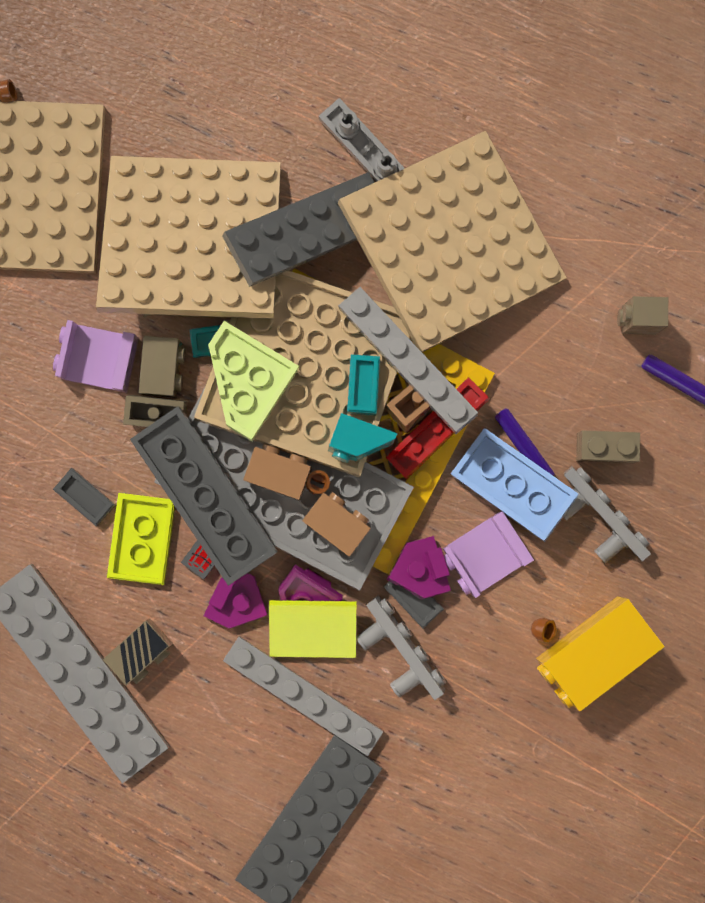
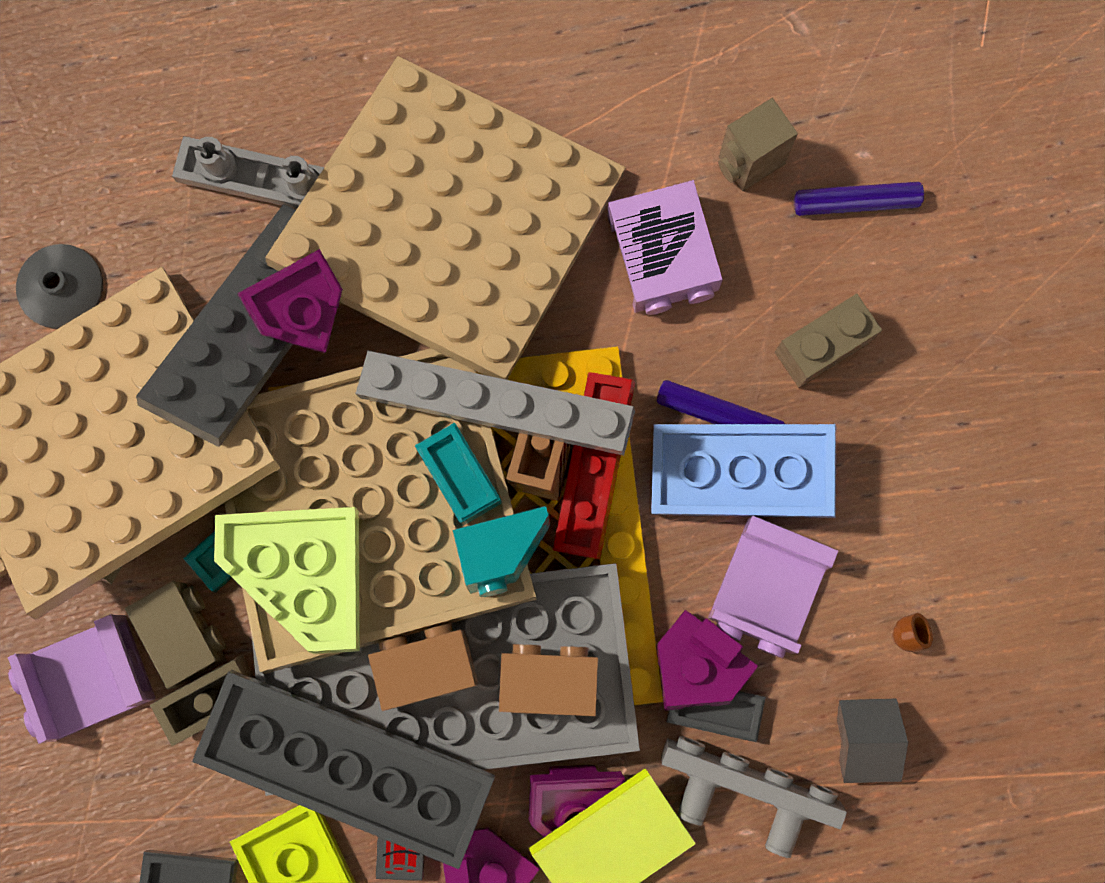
camera: 30 degrees left, 5 degrees down
(219, 147) = (78, 287): none -> dark grey dish
(319, 477) = (482, 636): dark orange hinge -> none
(339, 236) = (296, 303): none -> magenta plate
(482, 668) = (871, 740): none -> dark grey piece
(556, 337) = (665, 247): none -> lavender panel
(598, 653) = (1009, 615): yellow brick -> none
(622, 535) = (926, 440): light grey plate -> none

